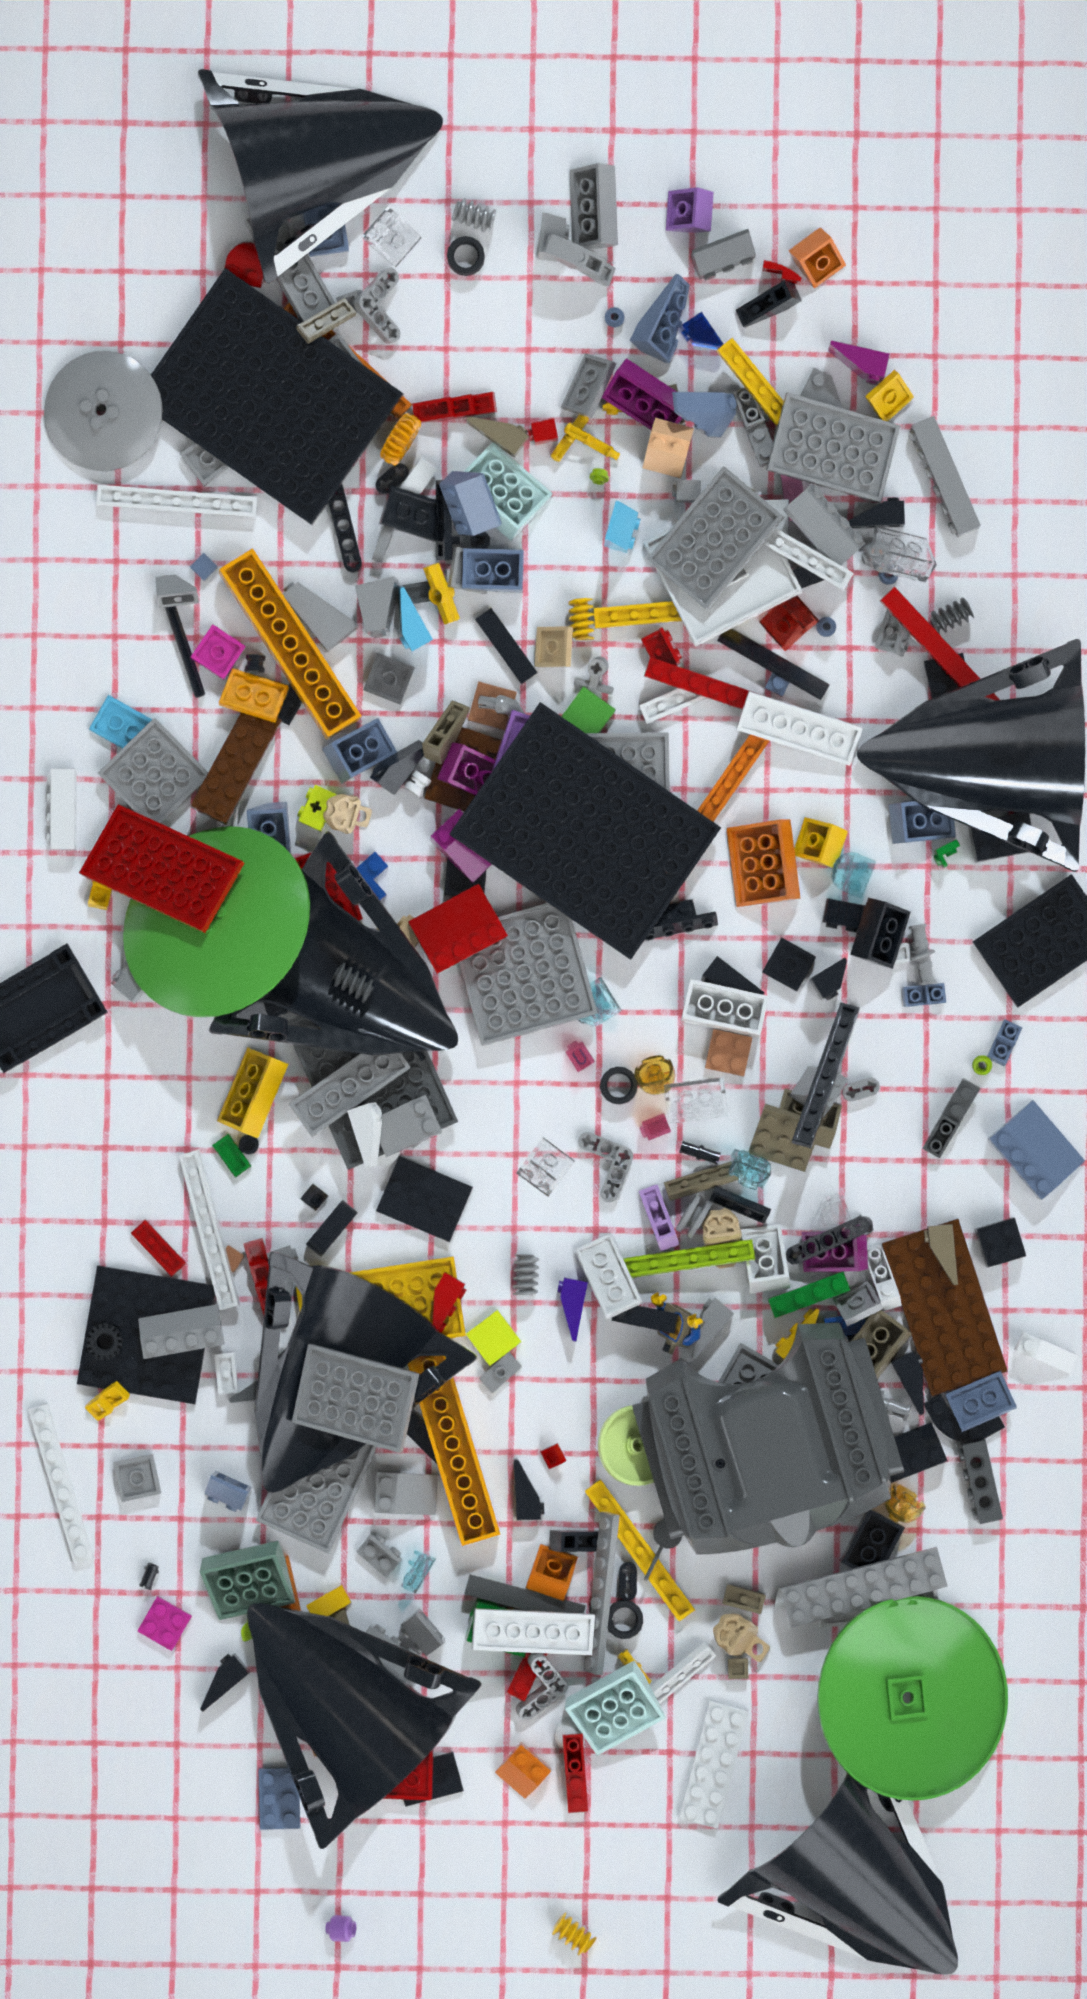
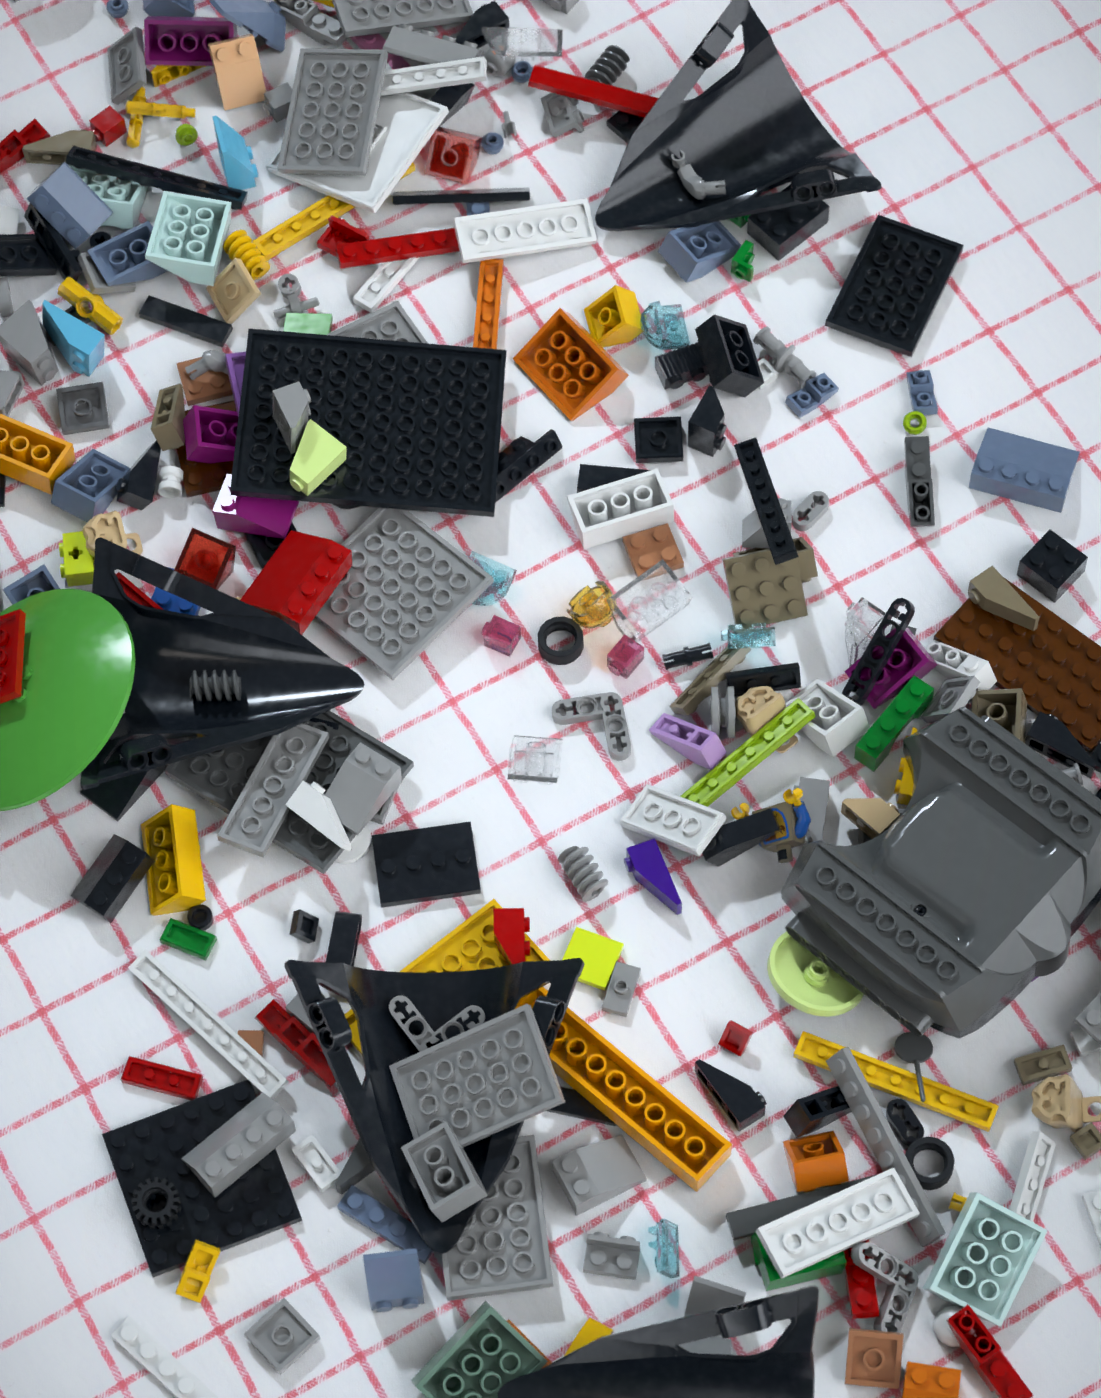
camera: 30 degrees left, 25 degrees down
(203, 1080) = (113, 877): none -> black slope
(246, 1437) = (383, 1222): none -> sand blue plate
(299, 1442) = (443, 1172): none -> light grey slope
(349, 1337) = (428, 1034): none -> light grey beam
(404, 868) = (206, 559): none -> clear red slope
(503, 1726) = (874, 1358): none -> nougat plate
(523, 847) = (315, 458): none -> yellowish green slope
(526, 804) = (291, 413): none -> light grey slope
(545, 582) = (189, 236): none -> light aqua slope
(553, 508) = (152, 176): none -> black plate
(745, 1359) = (870, 814): none -> tan slope
(847, 618) = (508, 126): none -> light grey hand
(950, 764) = (694, 184): none -> light grey arm

